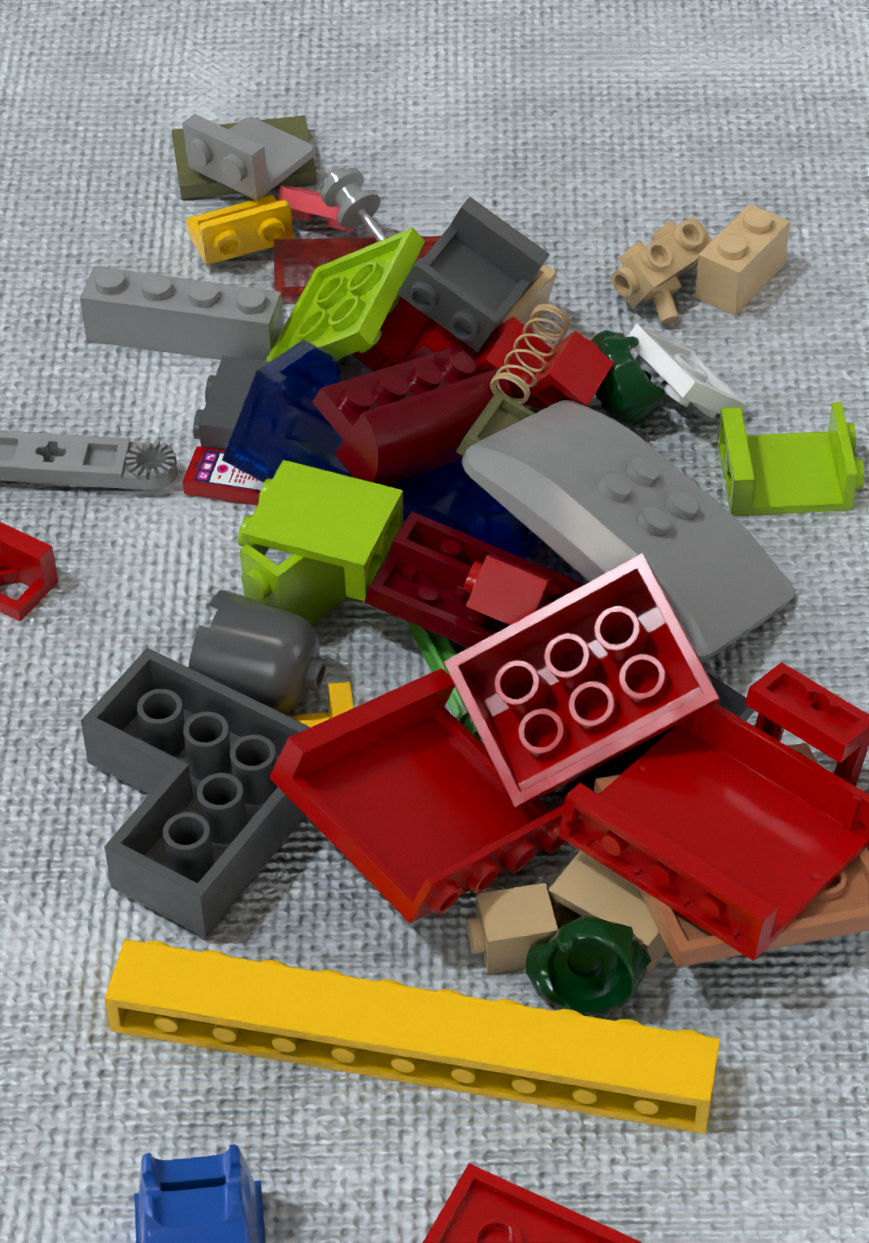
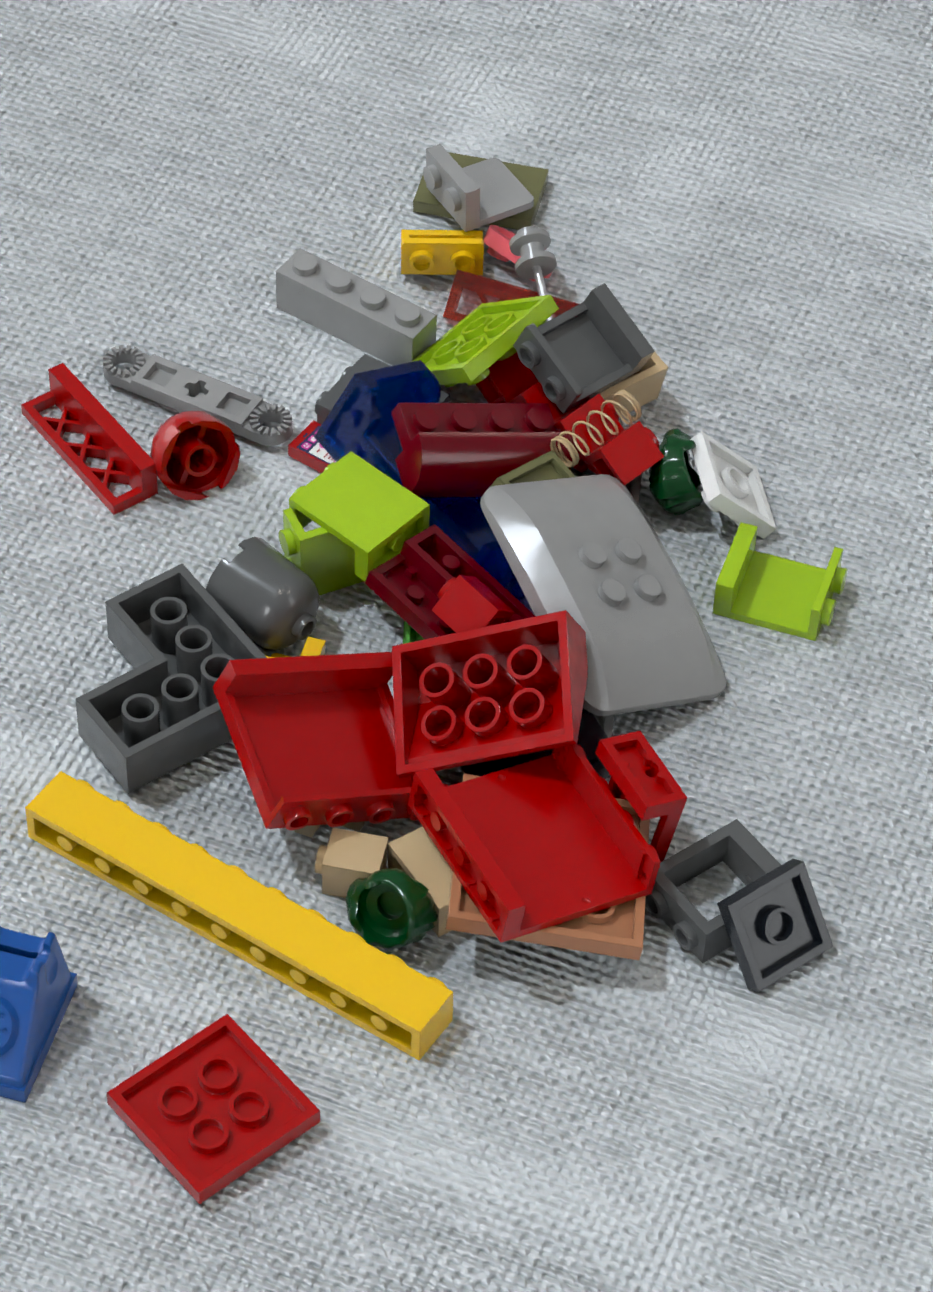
camera: 20 degrees right, 0 degrees up
(88, 522) = (194, 454): none -> red cylinder
(655, 268) = (761, 390): tan brick -> none
(742, 259) = (840, 405): tan brick -> none

